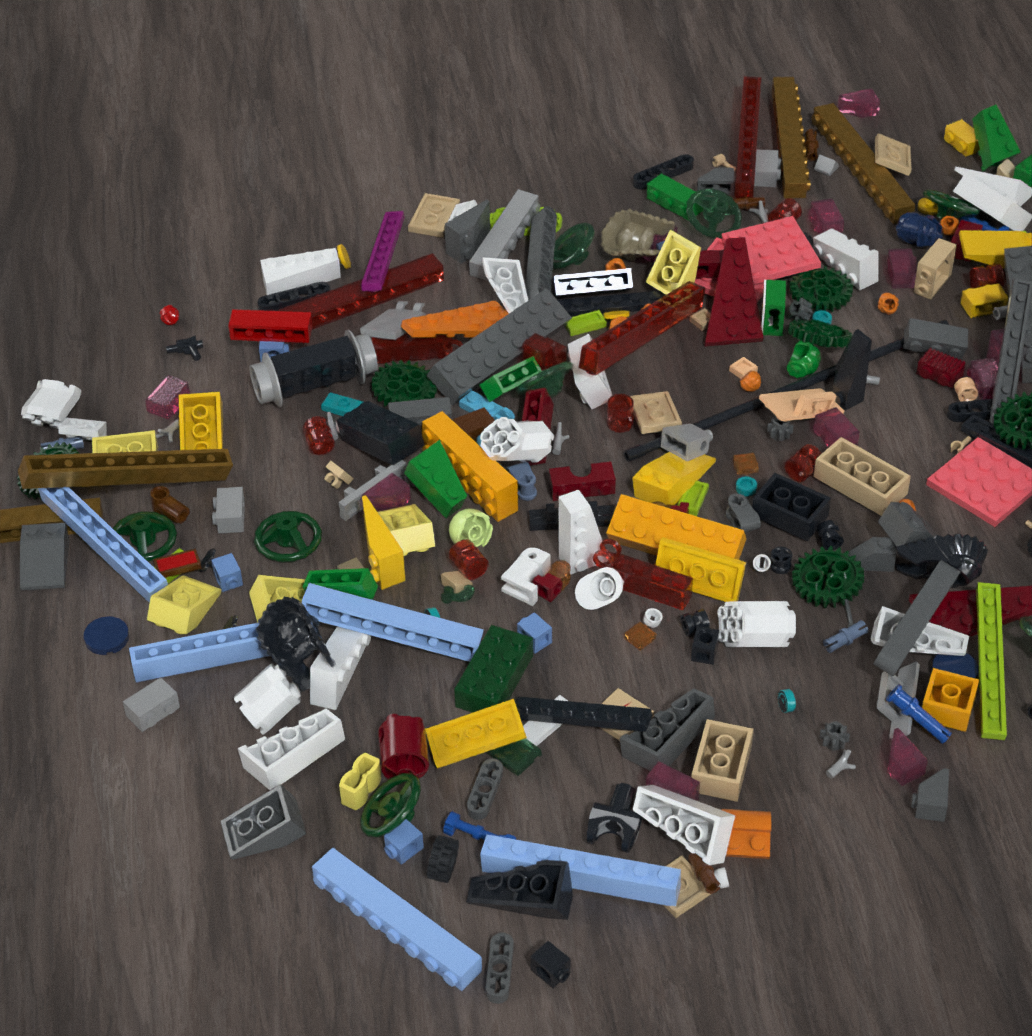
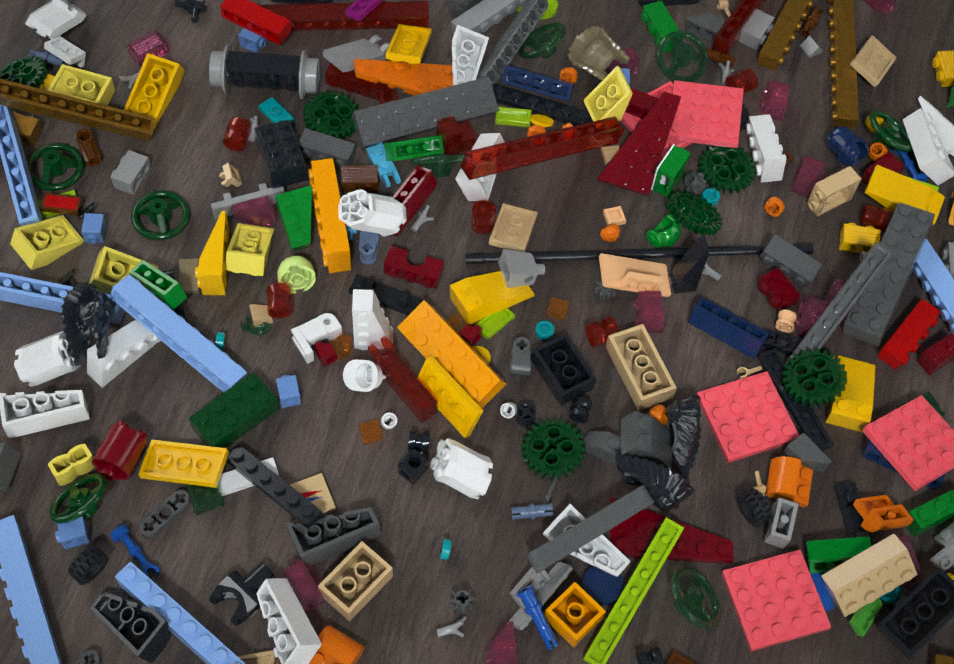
camera: 20 degrees right, 15 degrees up
(441, 295) = (408, 44): none -> yellow plate
(919, 414) = (728, 327): none -> dark blue brick
(939, 504) = (685, 426): none -> black piece

